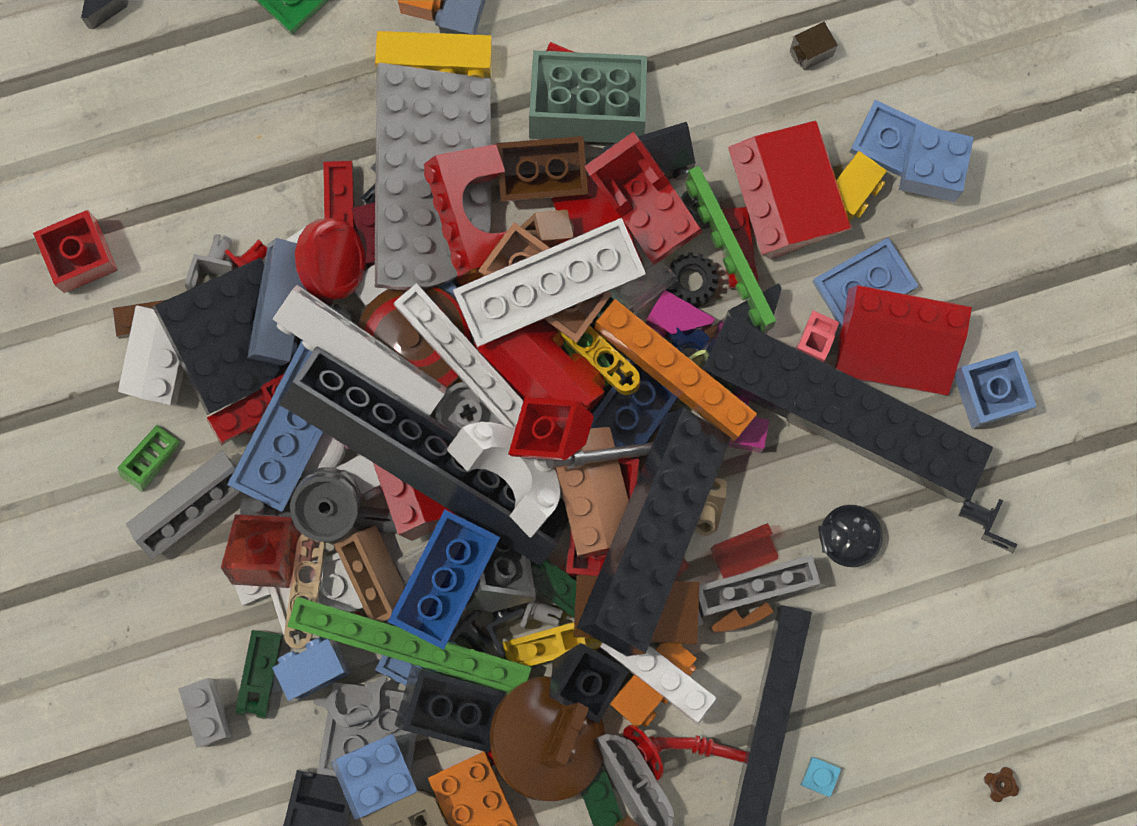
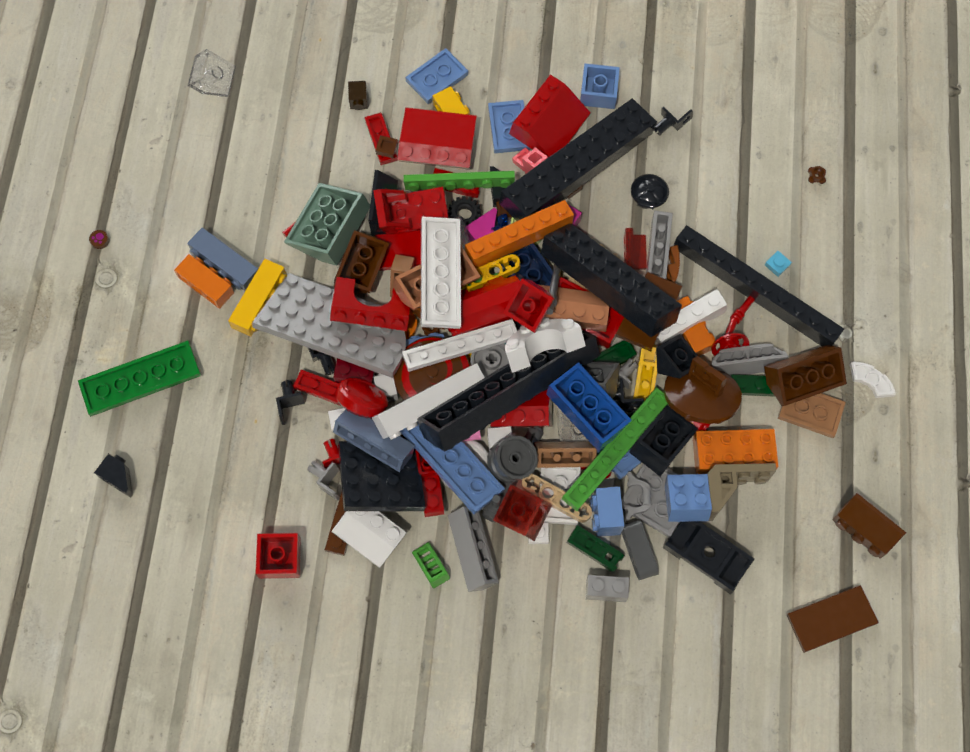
camera: 65 degrees left, 10 degrees down
(281, 736) = (639, 550): none -> dark grey beam
(303, 164) = (288, 399): none -> black bracket
(742, 123) = (386, 146): none -> reddish brown plate
(758, 109) = (377, 127): none -> red plate
(936, 163) = (459, 59): medium blue brick -> none

